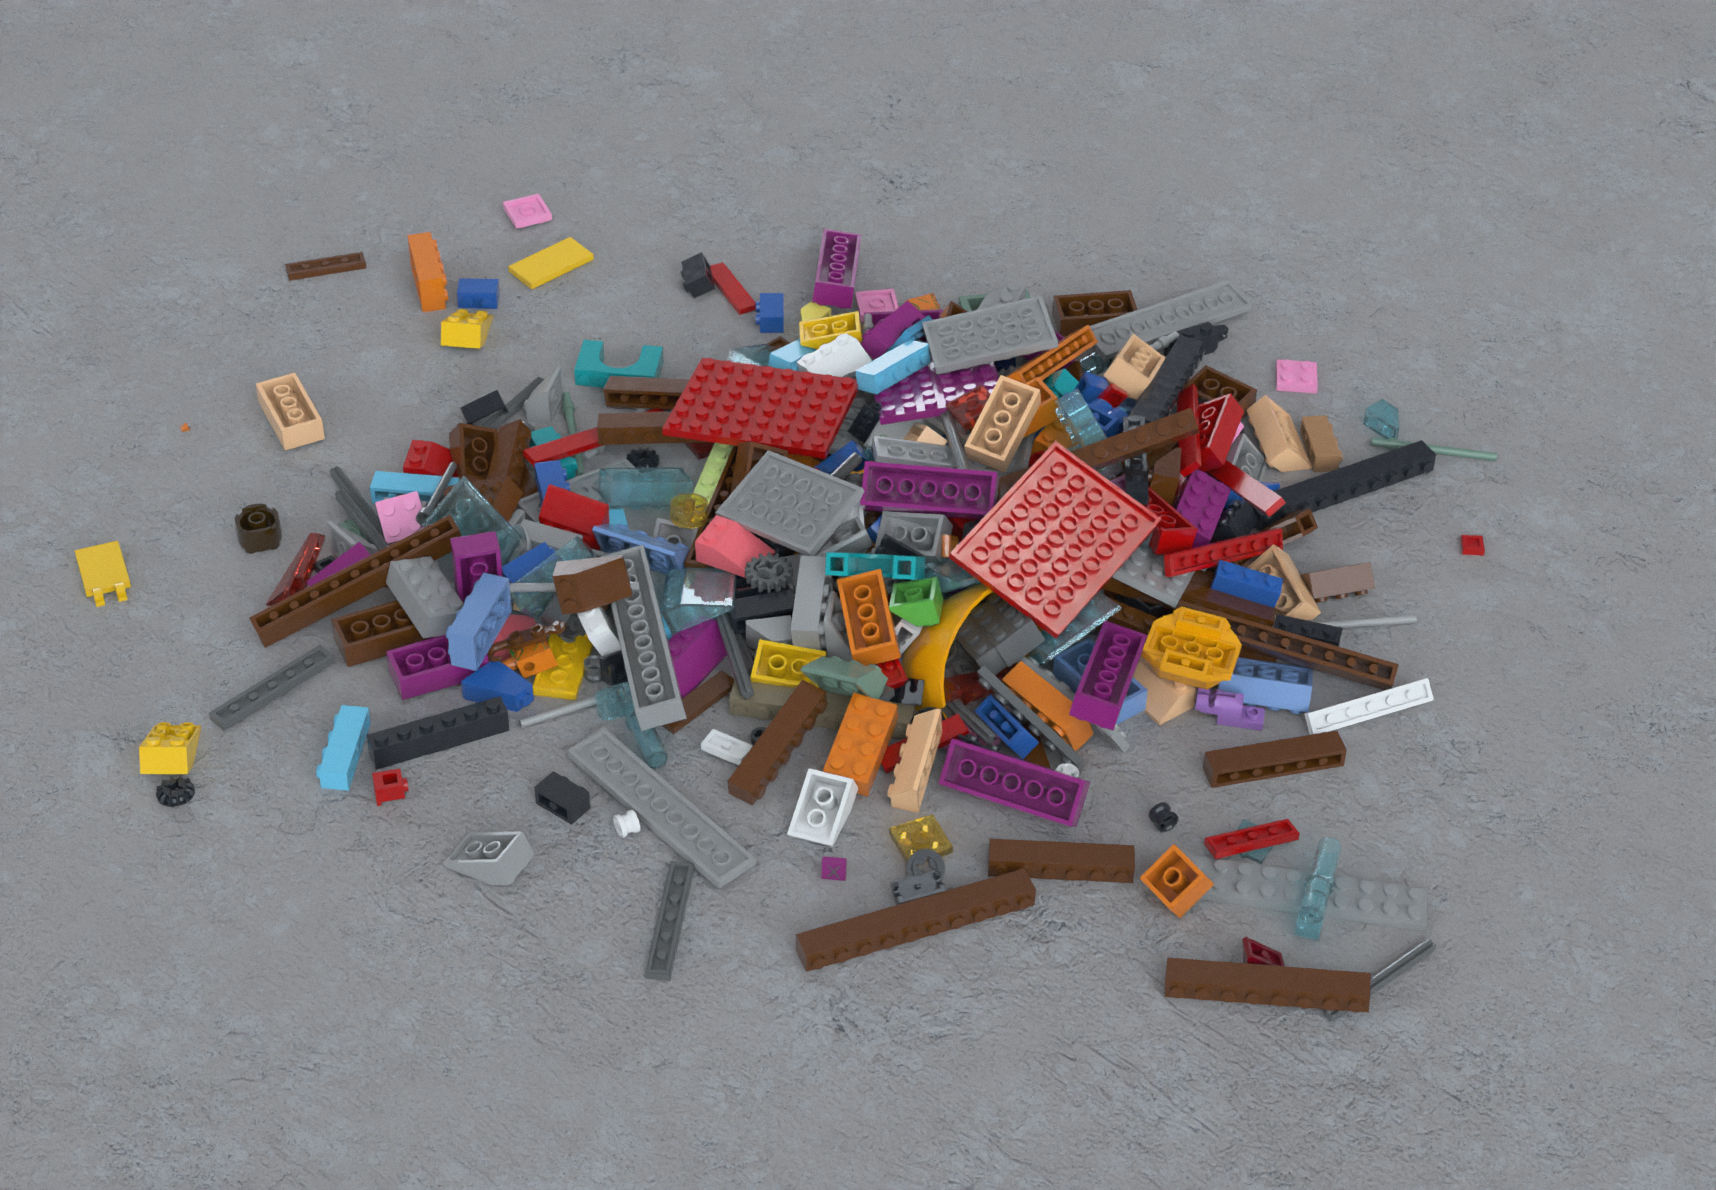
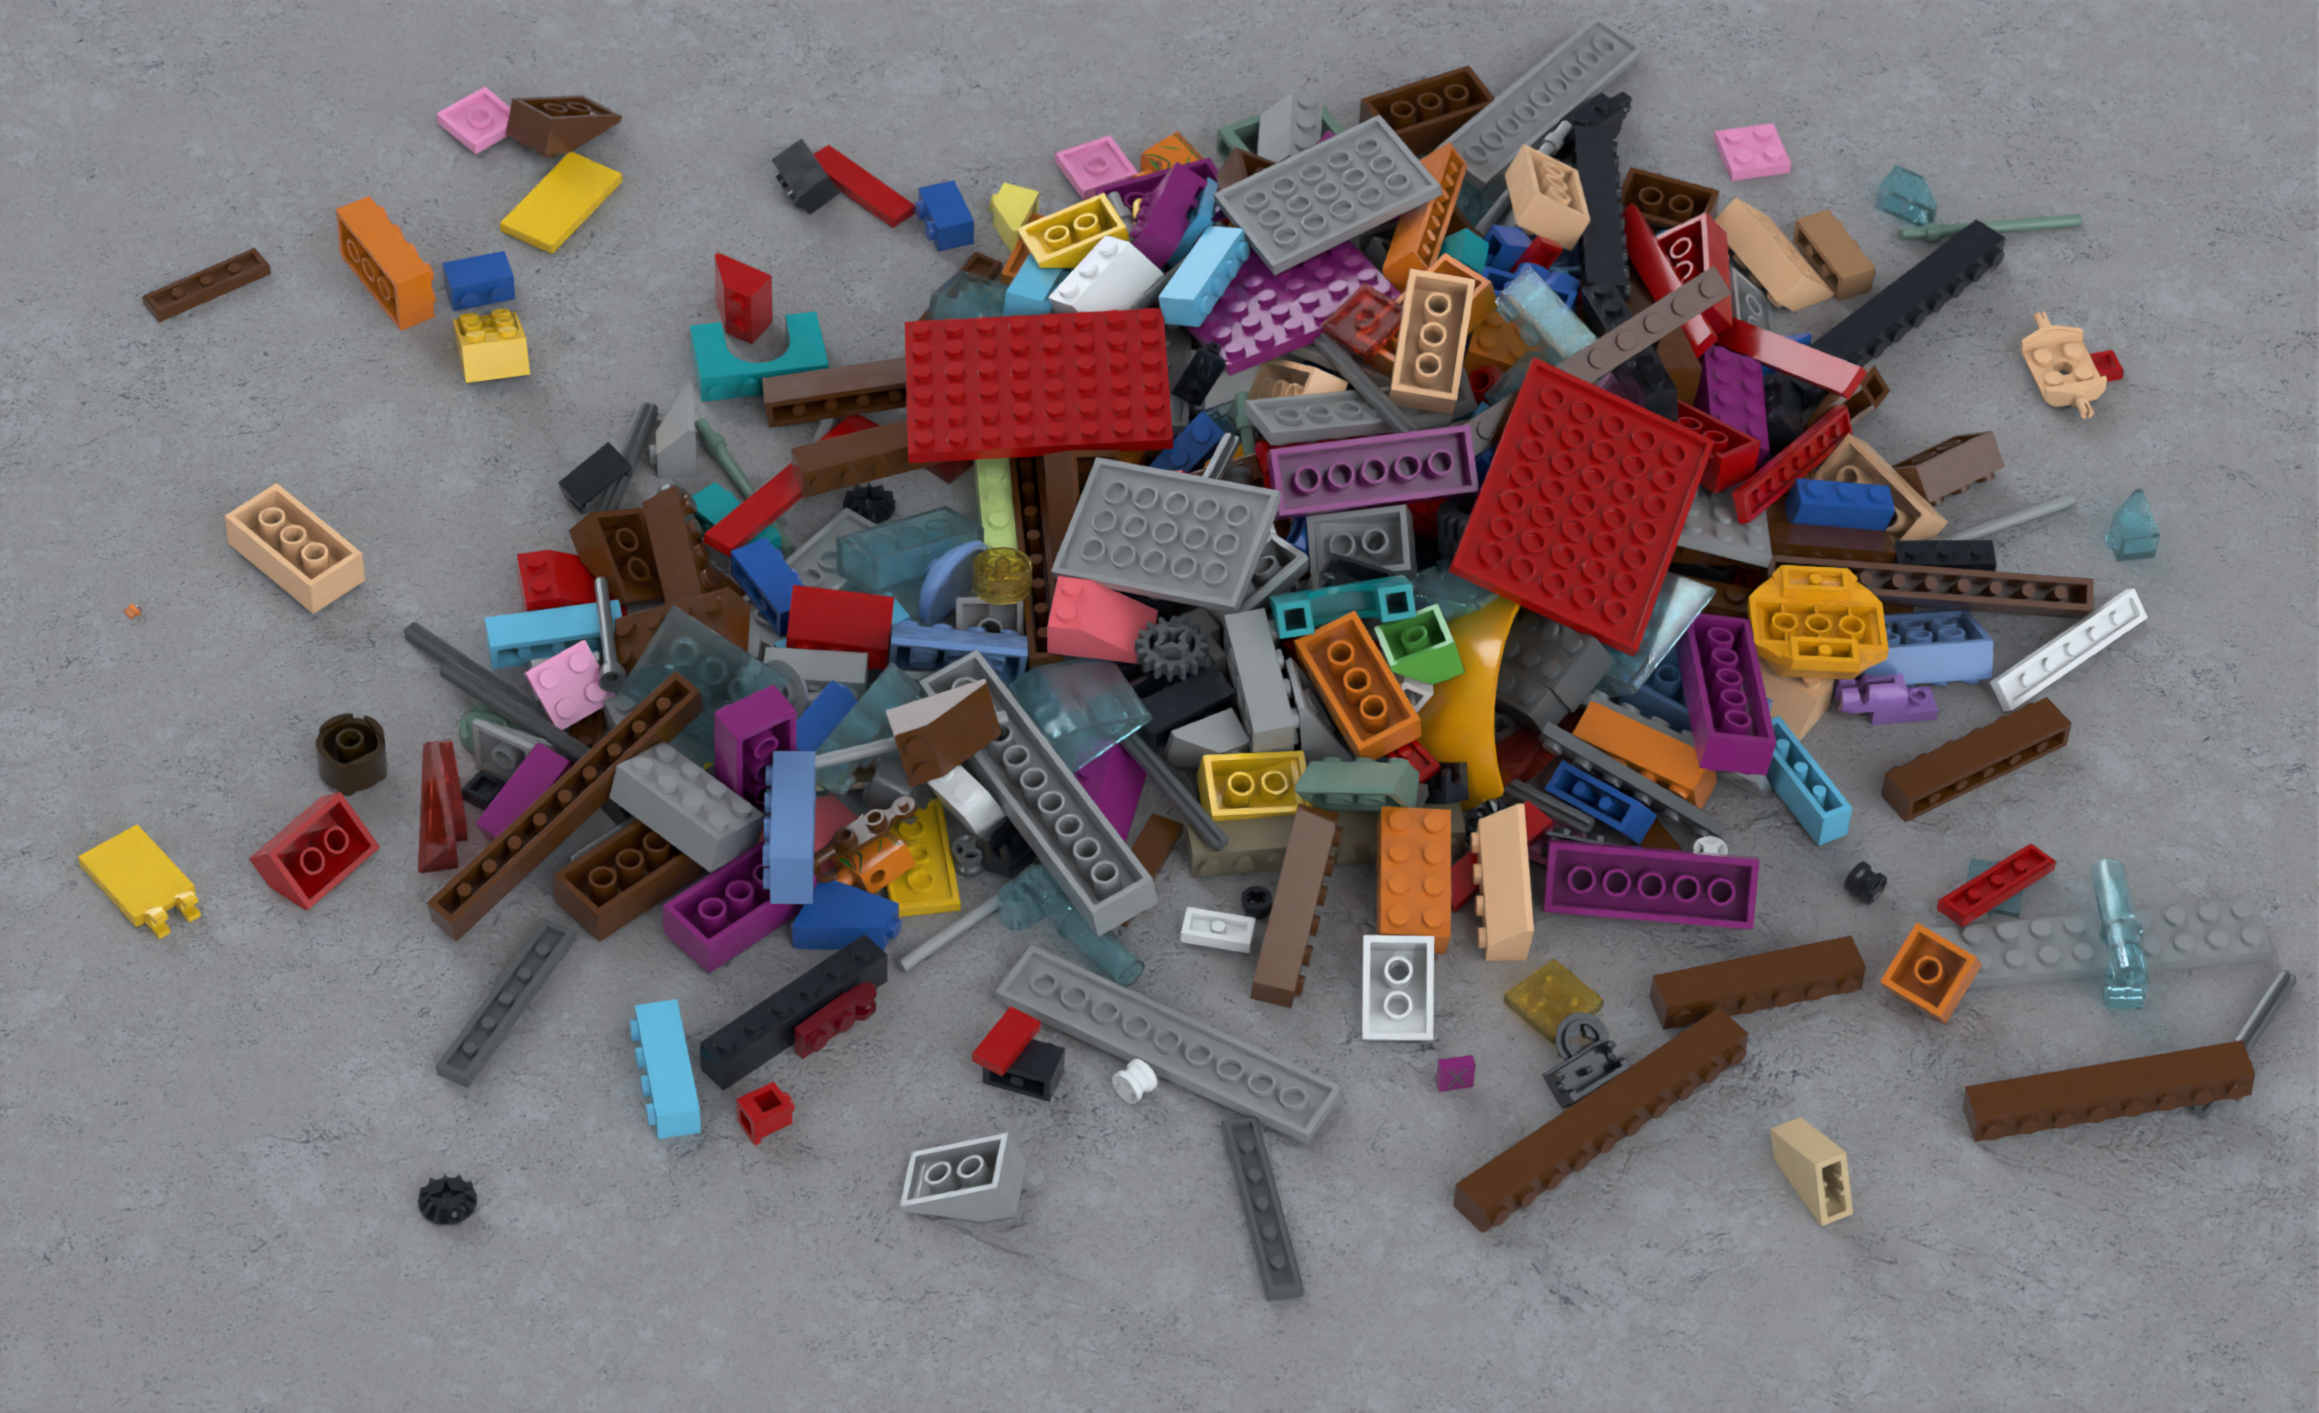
camera: 20 degrees left, 5 degrees up
(169, 748) = (406, 1136): yellow slope -> none
(209, 578) = (315, 851): none -> red slope
(461, 742) = (835, 1018): none -> dark red hinge
(552, 778) = (1006, 1041): none -> red tile
(569, 220) = (558, 122): none -> reddish brown slope
(623, 332) = (742, 298): none -> red slope
(653, 506) = (946, 580): none -> medium blue dish
(837, 268) = (1018, 121): magenta brick -> none
(948, 544) = (1421, 549): orange tile -> none
(1041, 986) = (1814, 1169): none -> tan slope
(1146, 744) = (1806, 788): none -> medium azure brick
(1260, 954) = (2079, 1051): dark red slope -> none
(1446, 644) = (2133, 530): none -> clear light blue slope
(1447, 528) = (2058, 349): none -> light nougat plate

